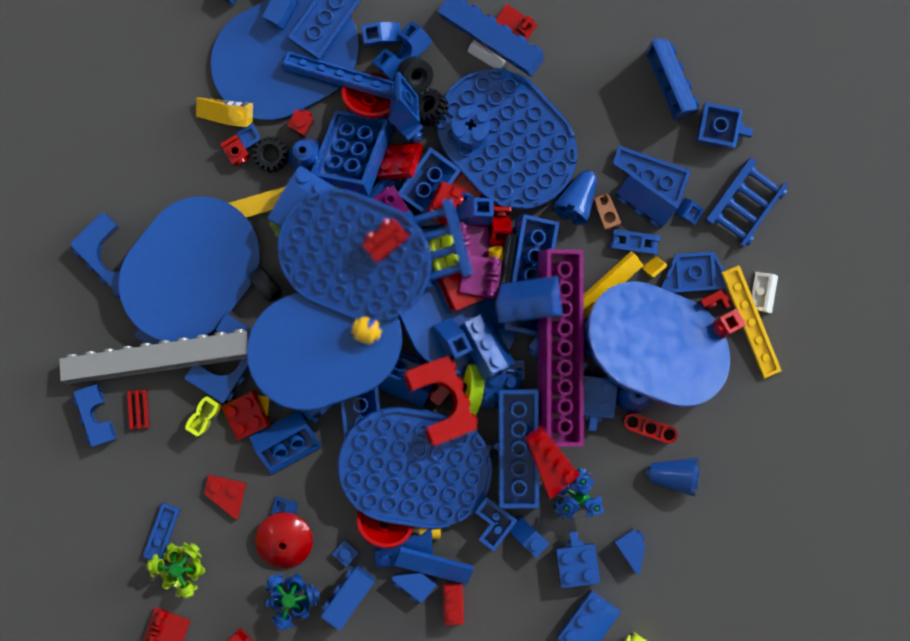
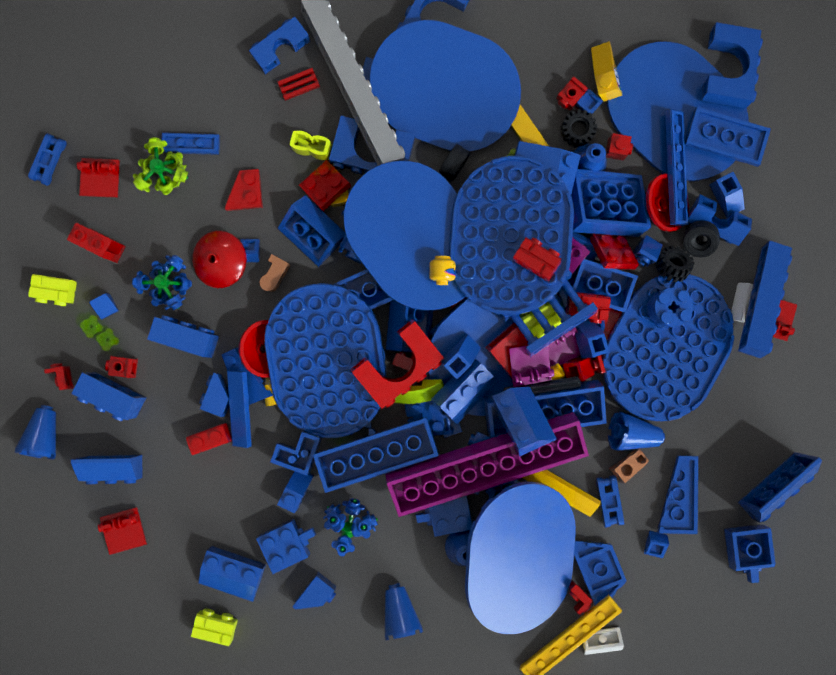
camera: 75 degrees right, 0 degrees up
(315, 489) = (275, 274): none -> nougat leg
(345, 553) = (225, 321): blue plate -> none
(403, 104) = (671, 236): blue slope -> none
(551, 463) = (372, 490): red wing -> none
(646, 201) = (654, 500): blue slope -> none
(654, 267) = (592, 528): yellow slope -> none
(659, 428) = (439, 582): red beam -> none
(726, 326) = (558, 615): red brick -> none
(727, 201) = (679, 578): blue fence -> none

